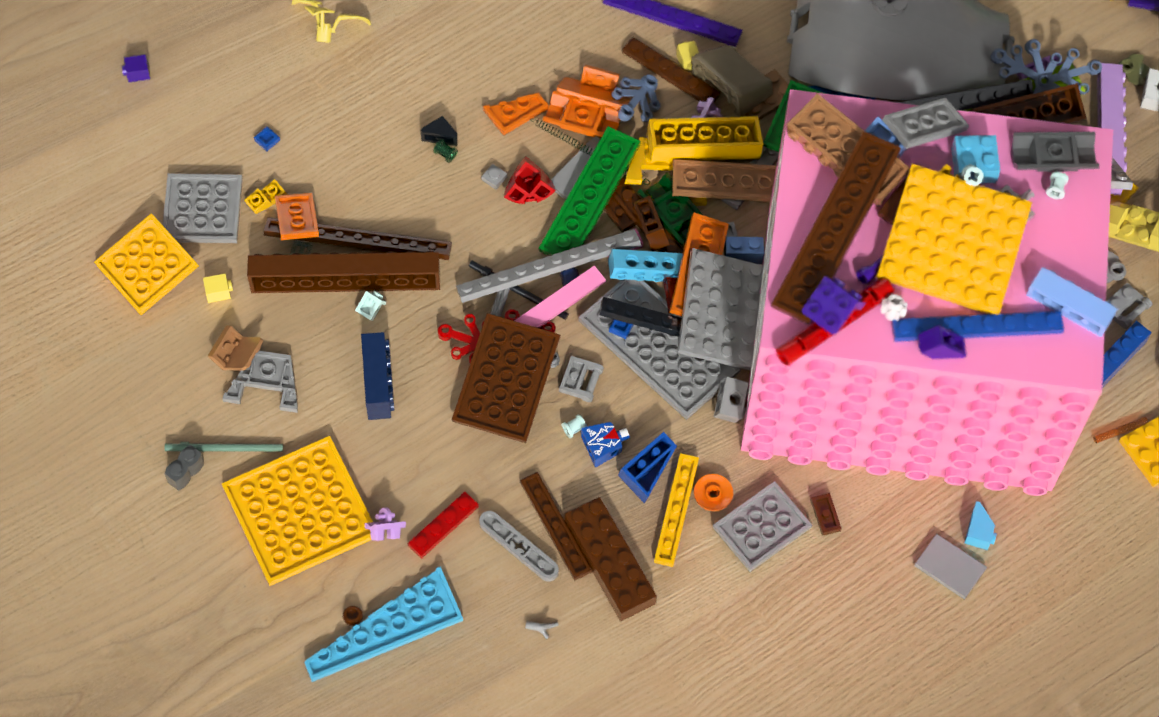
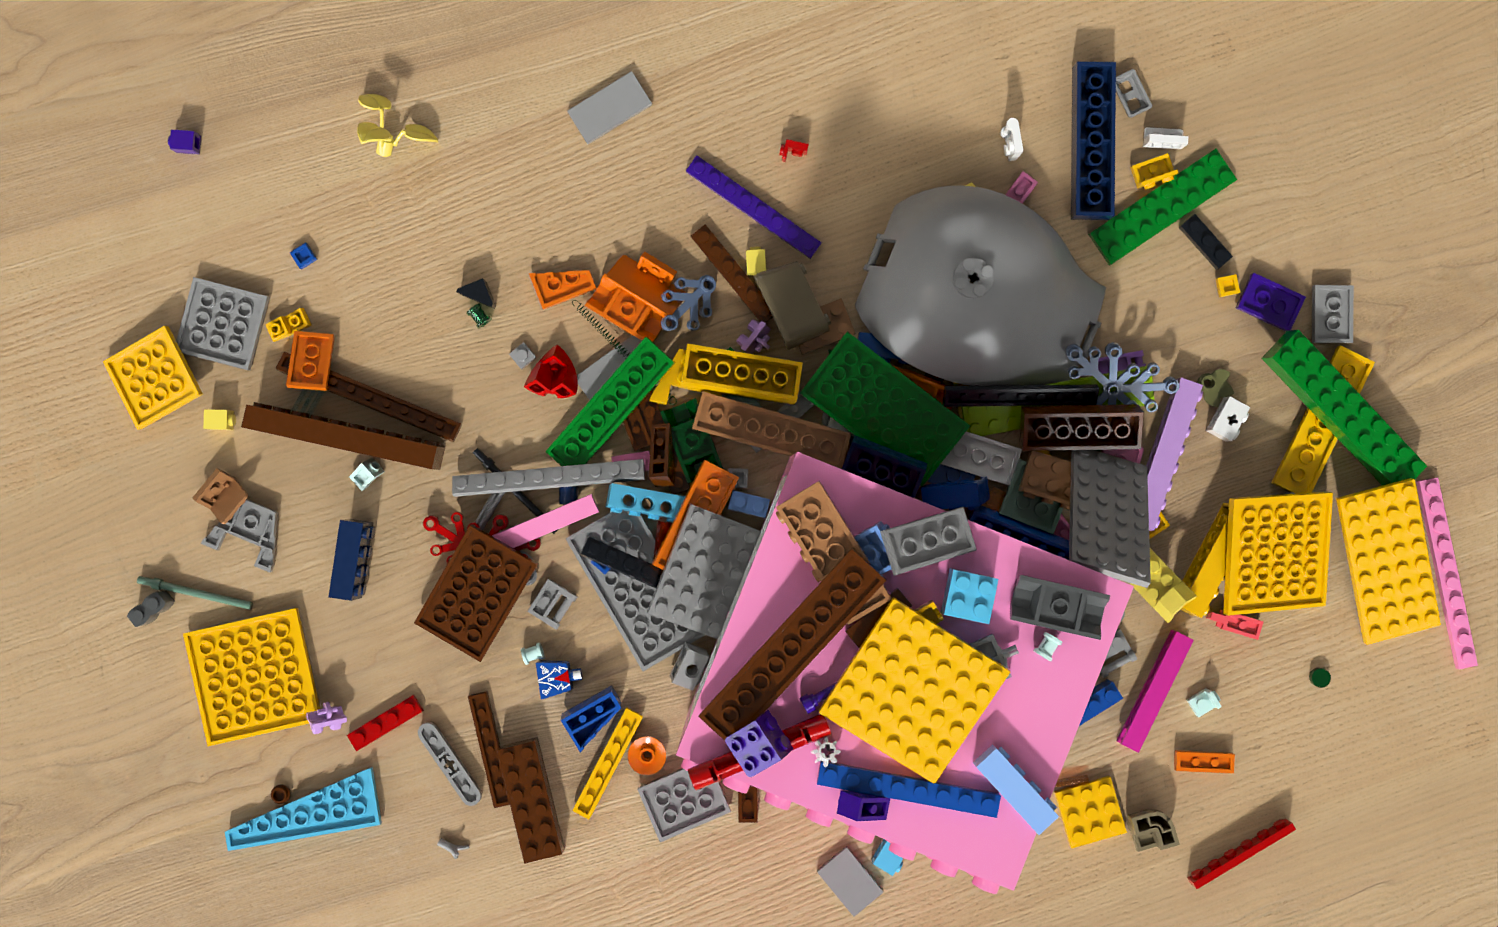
camera: 15 degrees right, 25 degrees up
(978, 175) = (955, 622): light aqua bush -> none

